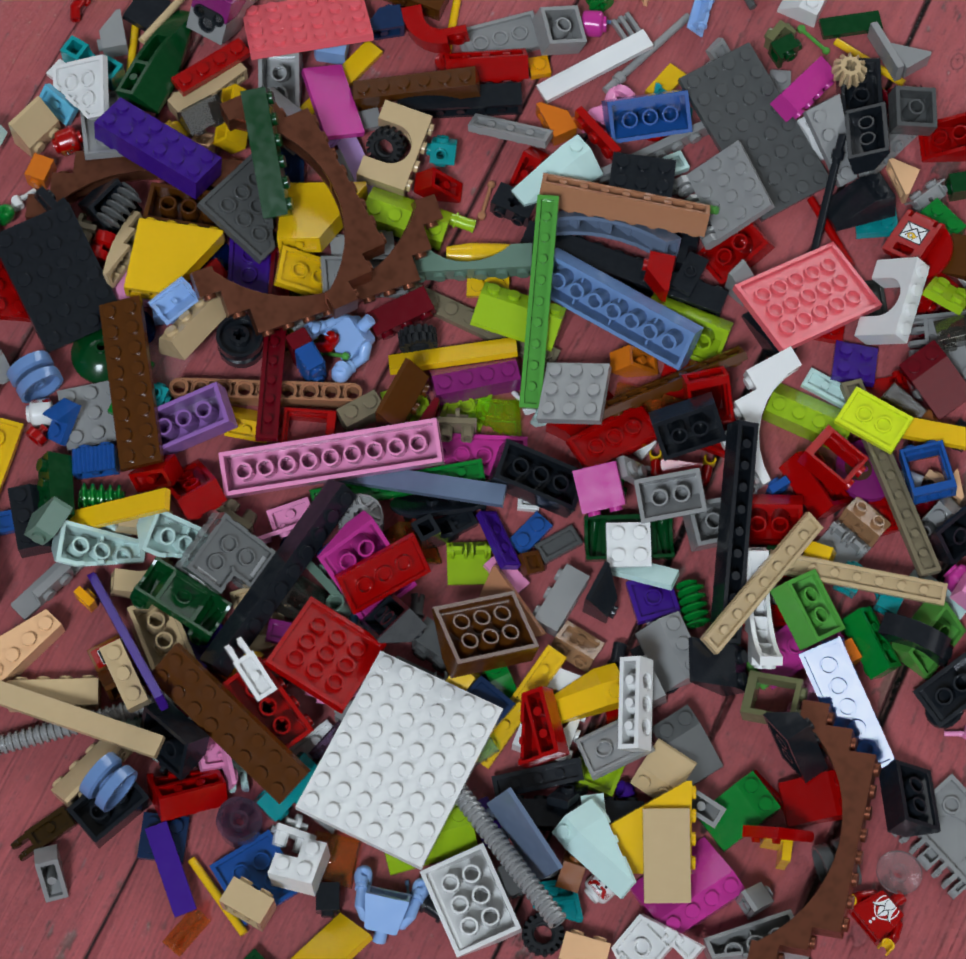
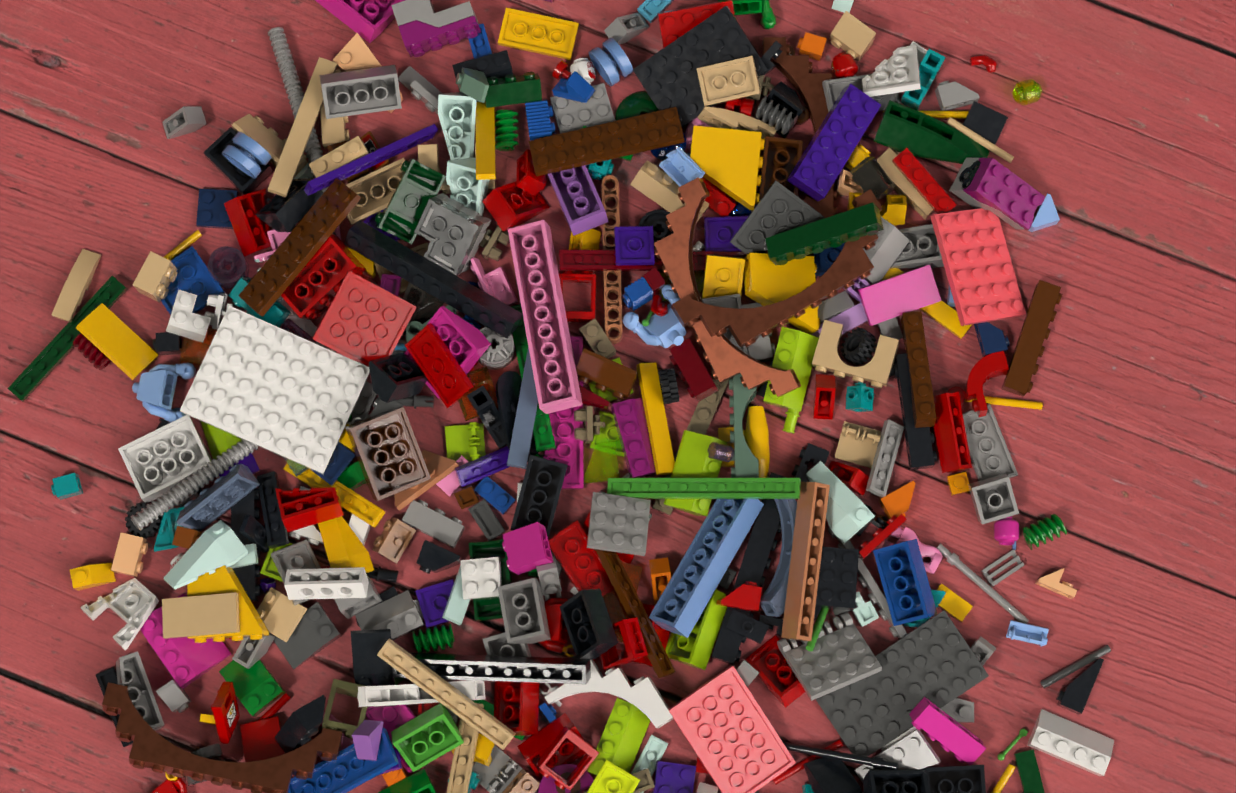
camera: 90 degrees right, 10 degrees up
(17, 201) = (783, 30): white hand -> none
(41, 648) = (360, 91): none -> light grey slope
(45, 832) = (216, 112): dark brown hinge -> none
(58, 104) = (882, 51): medium azure plate -> none
(78, 242) = (728, 80): none -> tan plate
(86, 597) = (417, 124): light orange plate -> none
(170, 869) = (187, 215): dark purple tile -> none
(186, 931) = (140, 233): clear orange hinge -> none
(251, 671) = (340, 259): white hinge -> none
(258, 357) = (634, 245): none -> dark purple plate
(481, 215) = (801, 438): nougat hinge -> none
(491, 159) = (857, 444): none -> tan hinge
(499, 282) = (720, 452): none -> piece
(594, 66) = (962, 535): white tile -> none
(780, 30) = (1010, 704): olive bracket -> none
(784, 49) = (995, 715): dark green brick -> none
(812, 669) = (367, 739): none -> medium lavender slope
(849, 70) = (966, 765): tan gear -> none

